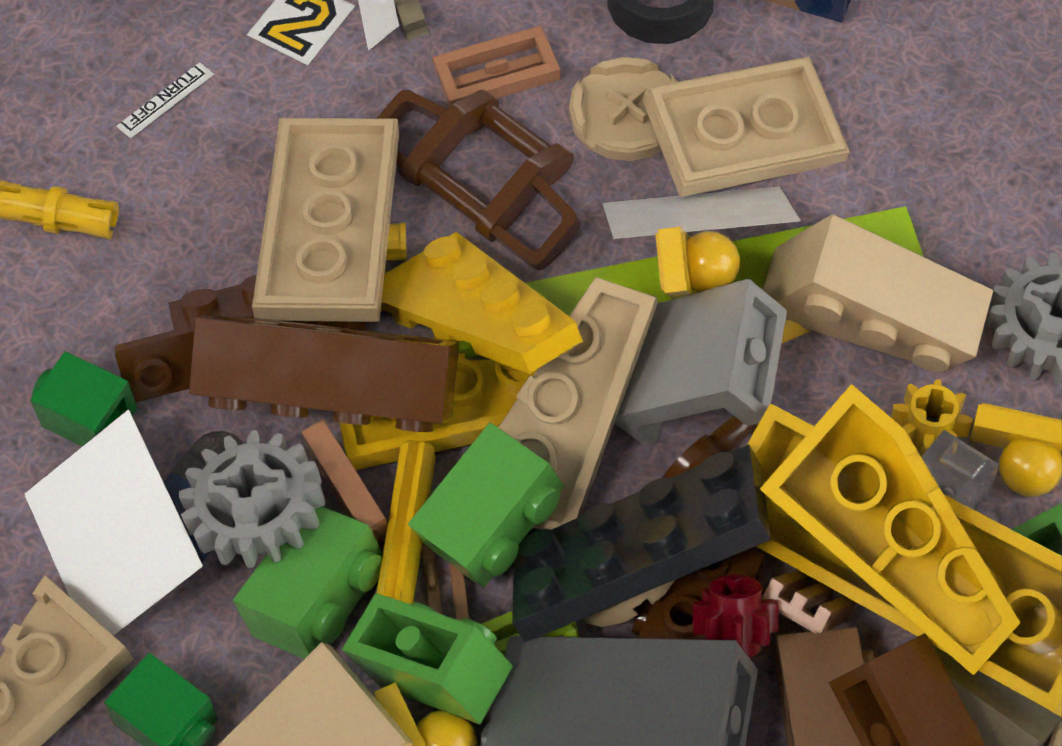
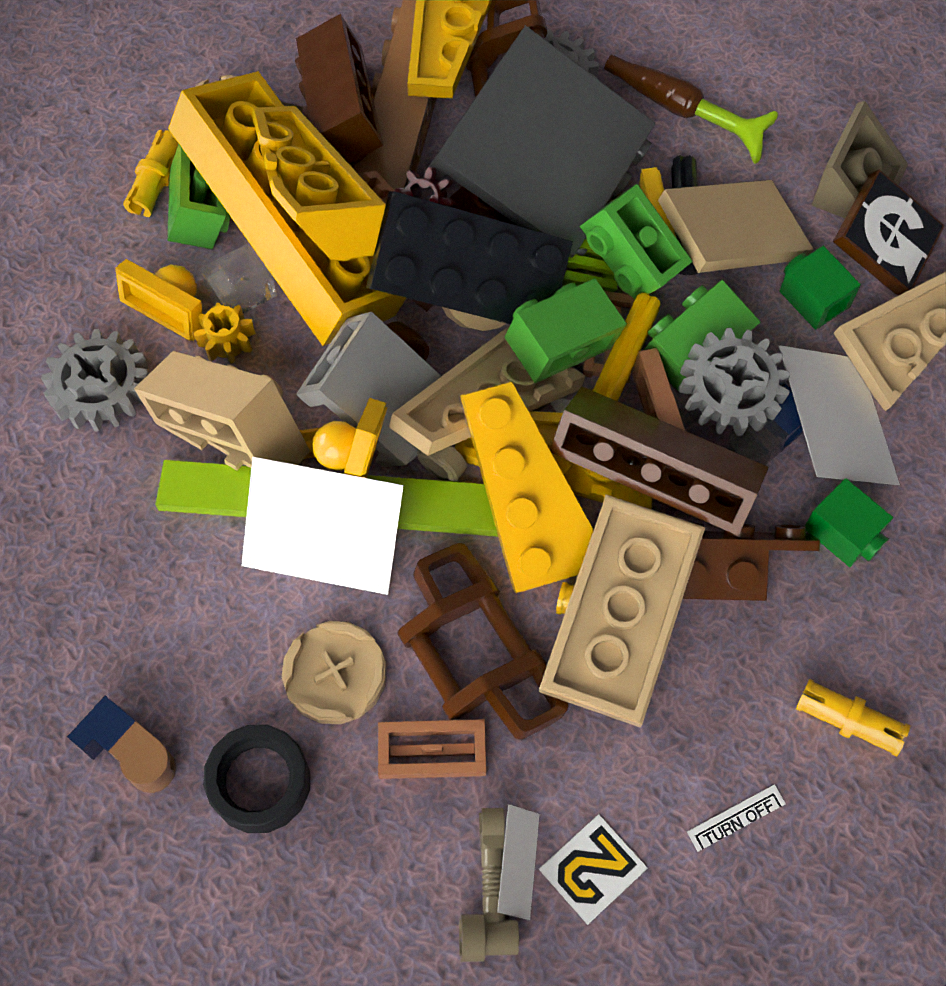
camera: 165 degrees left, 5 degrees up
(744, 126) = (246, 615): tan tile -> none

